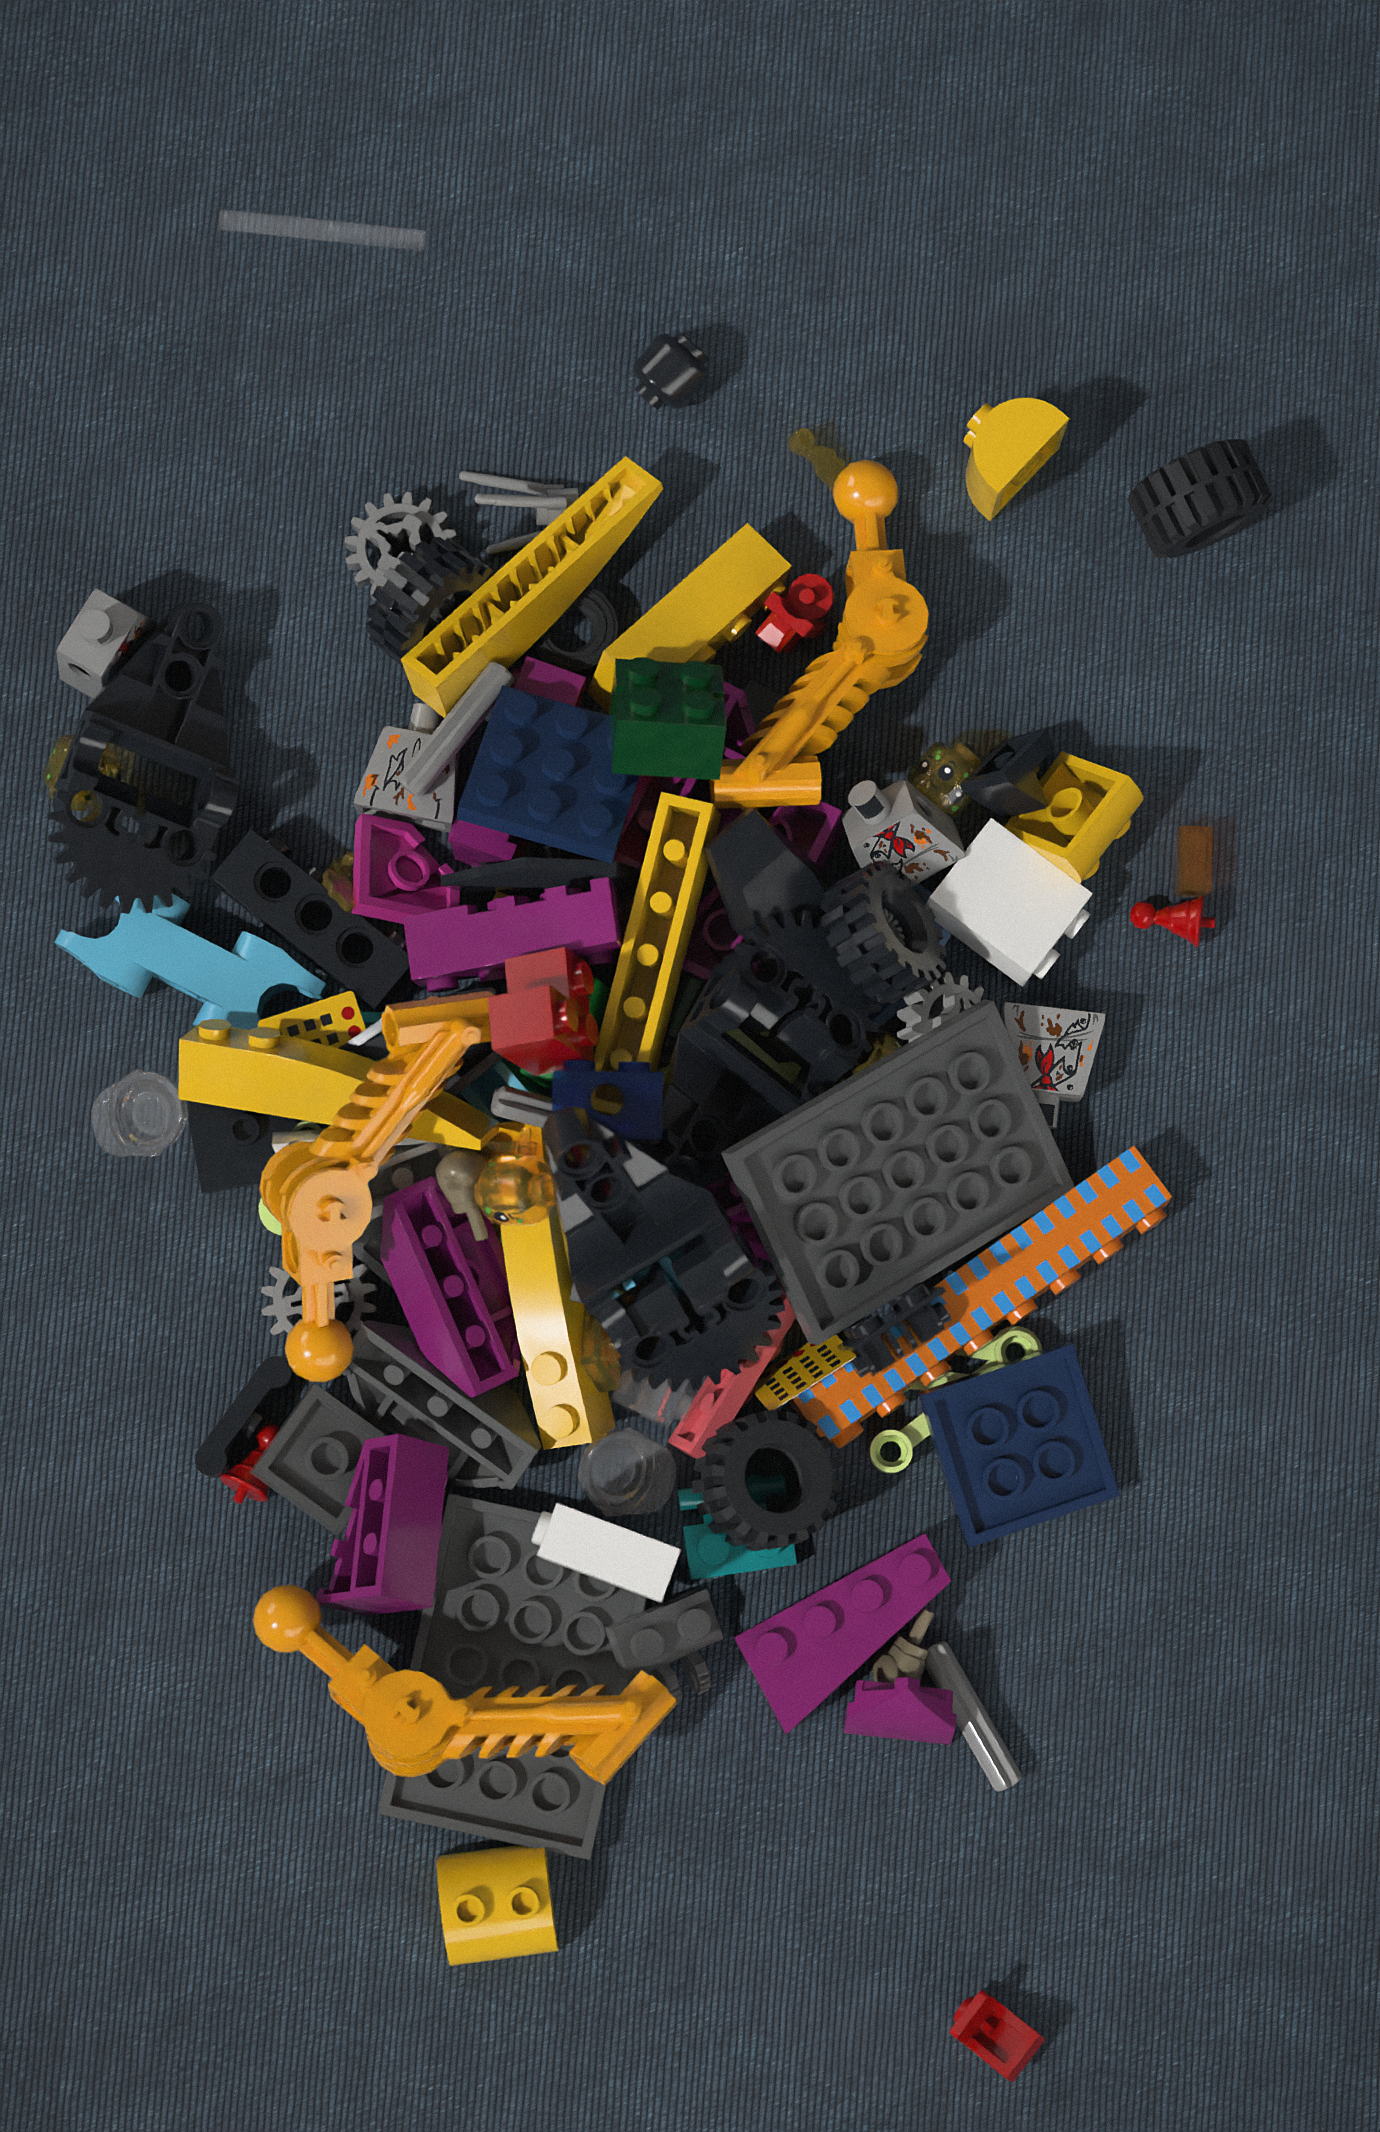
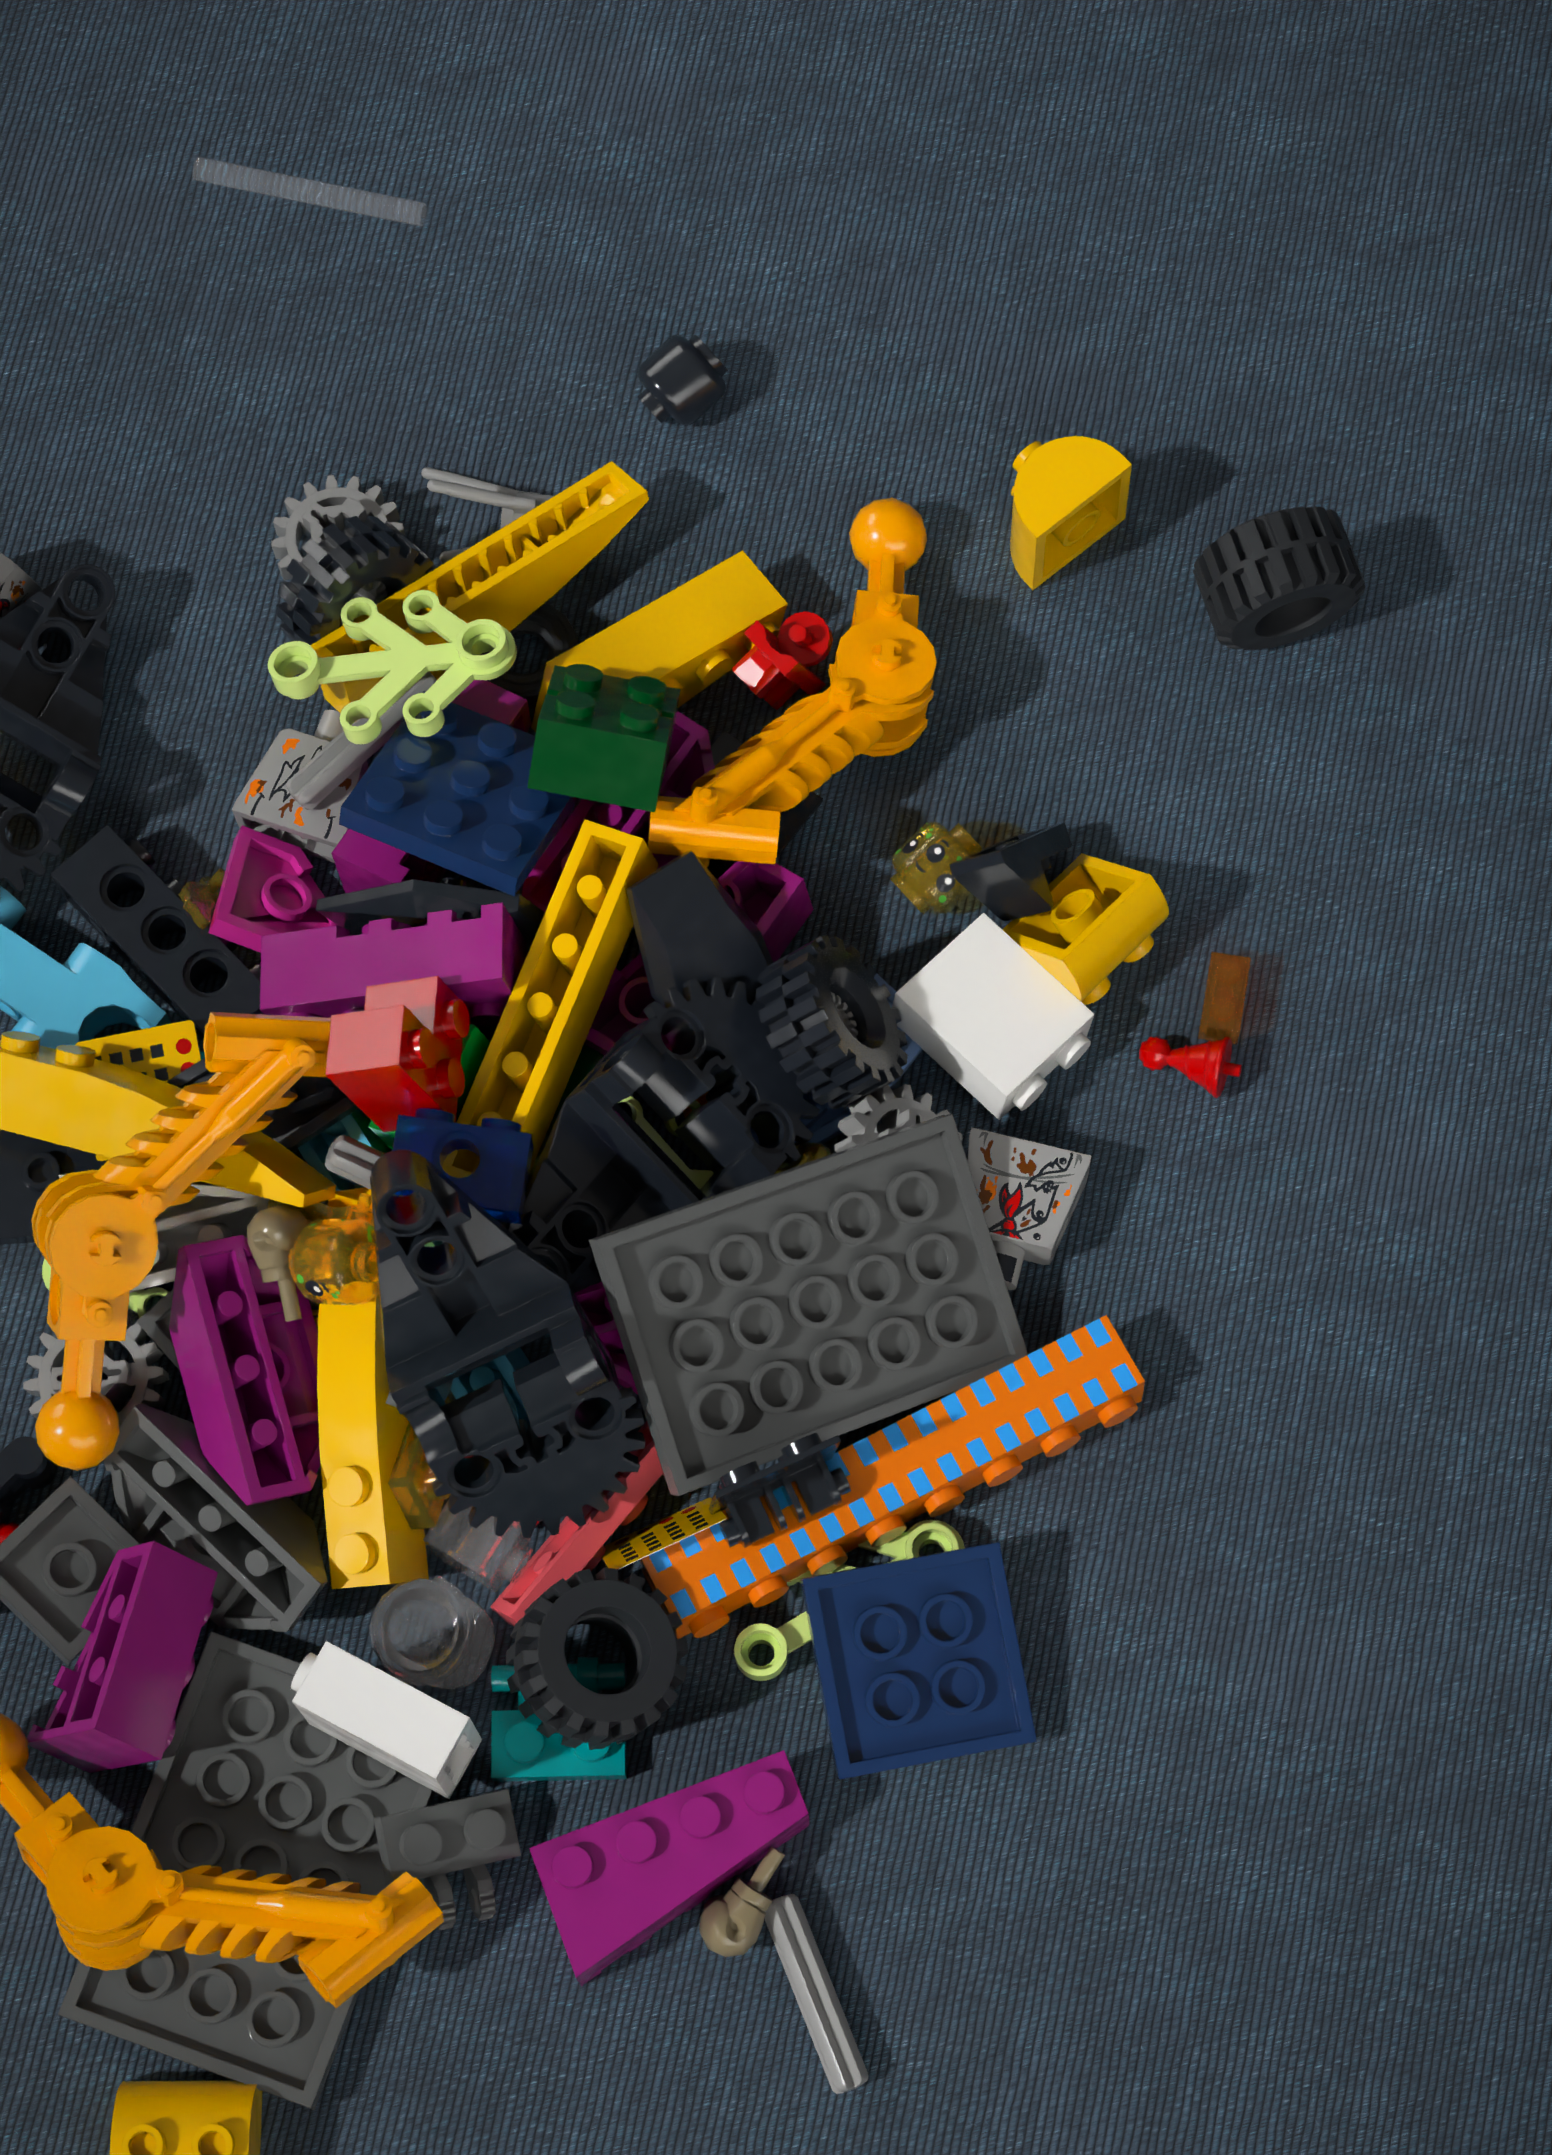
camera: 15 degrees right, 10 degrees down
(486, 669) = (400, 663): none -> yellowish green plant
(825, 462) = (845, 497): clear yellow piece -> none
(901, 830) = (872, 909): light grey torso -> none
(901, 1711) = (726, 1972): magenta slope -> none

